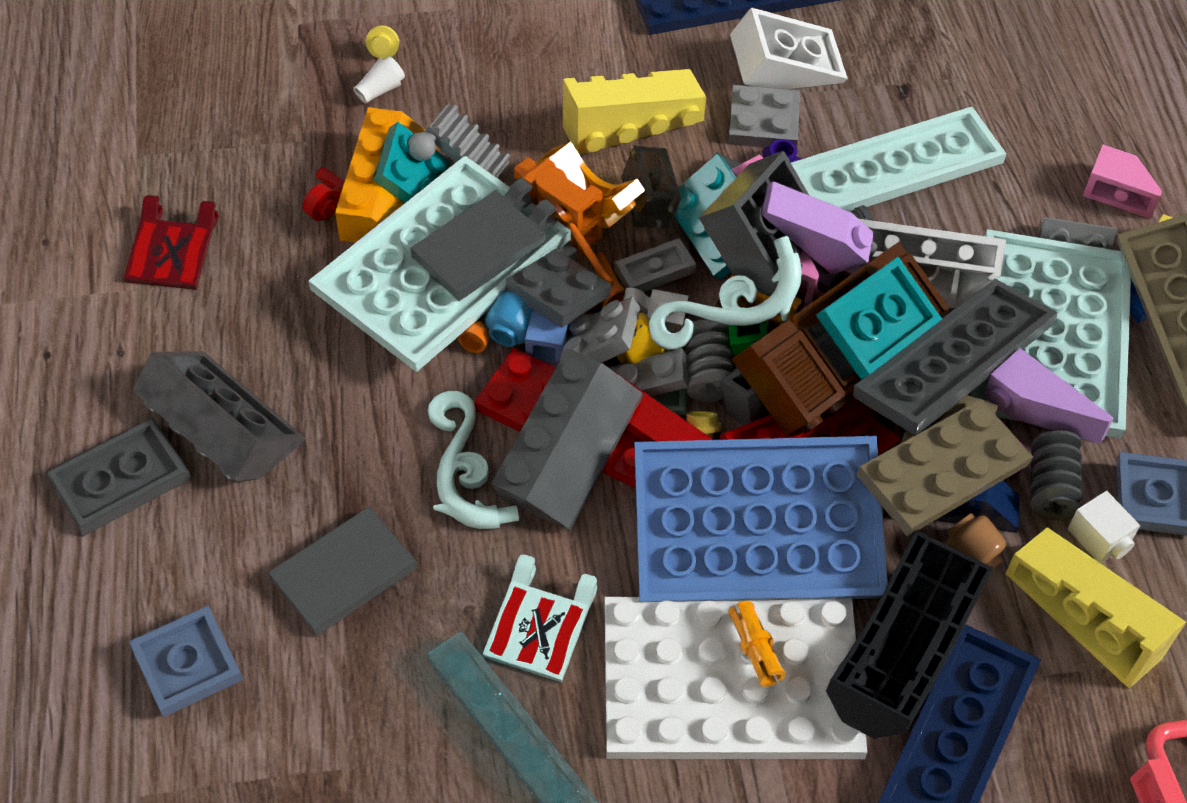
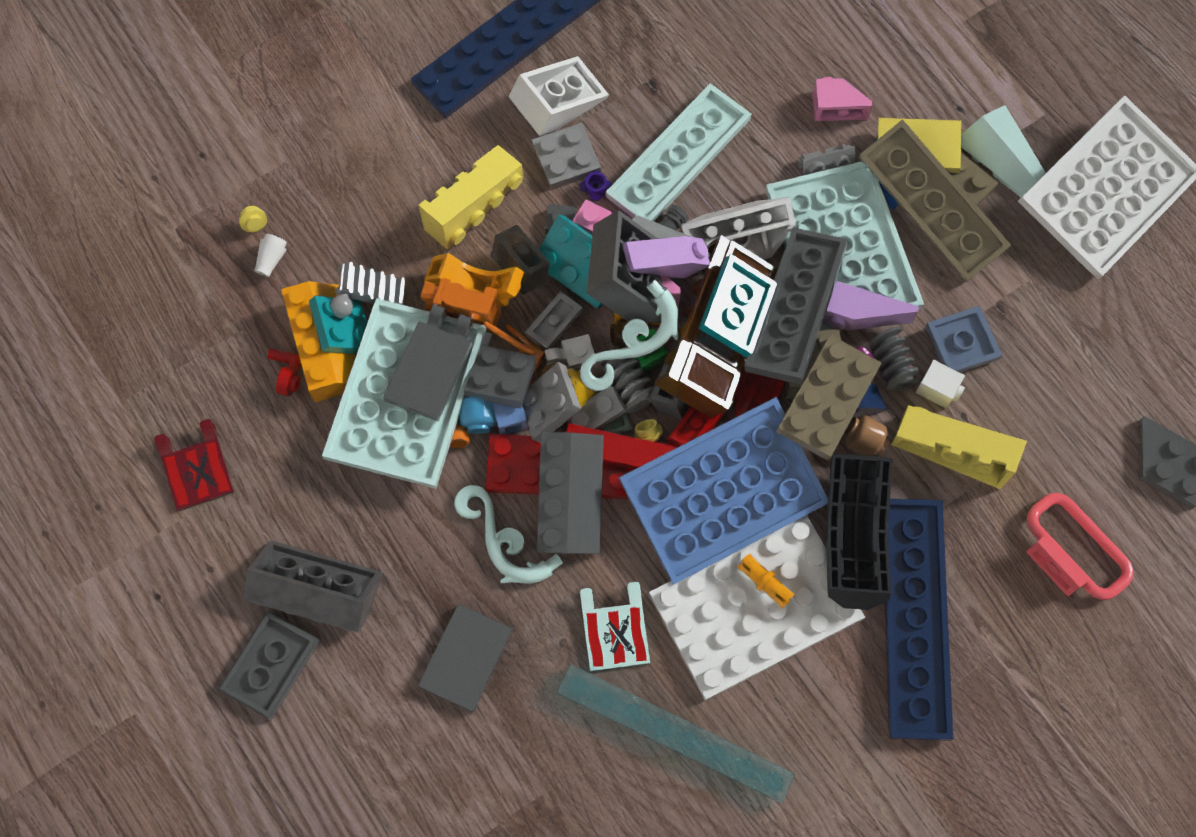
camera: 25 degrees left, 15 degrees up
(185, 661) = (400, 776): sand blue plate -> none

